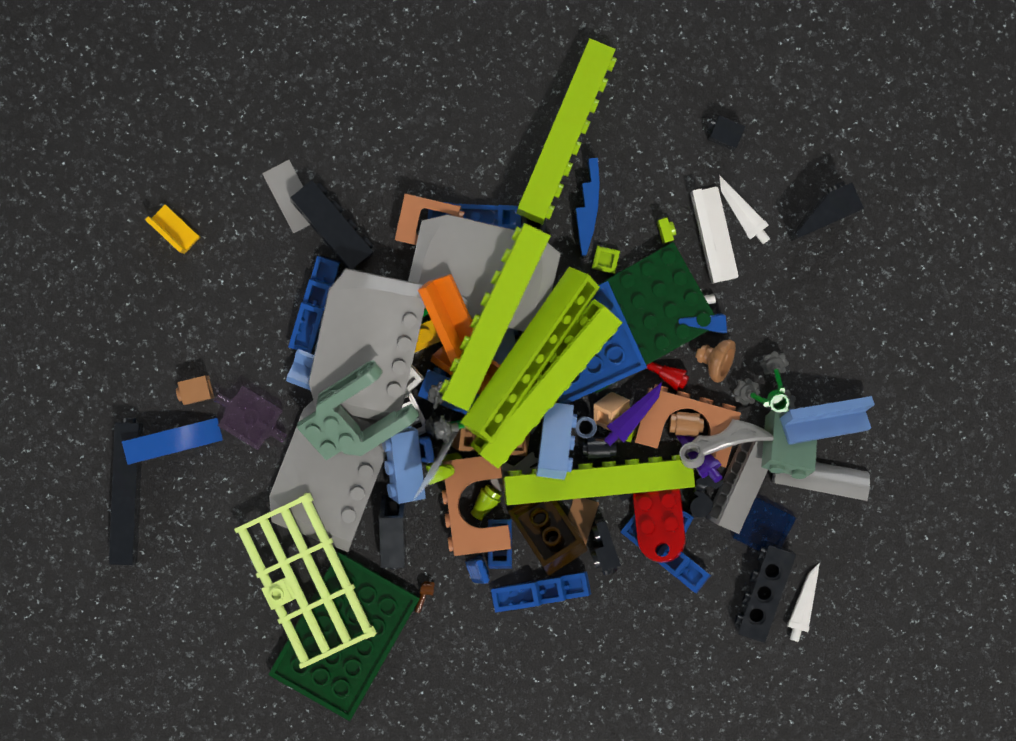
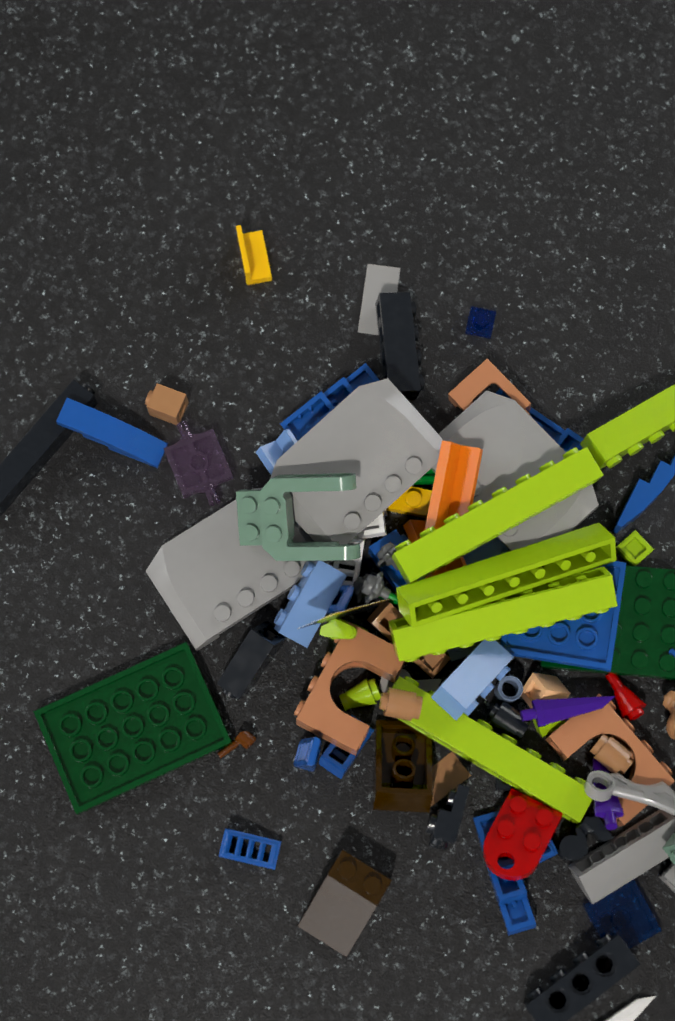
camera: 40 degrees right, 15 degrees down
(289, 589) = (114, 642): yellowish green door -> none
(378, 162) = (480, 322): none -> clear blue plate
(481, 651) = (226, 843): none -> blue slope
(519, 497) = (401, 704): none -> medium nougat brick
(541, 591) = (354, 821): blue slope -> none
(572, 649) = (344, 903): none -> dark brown slope

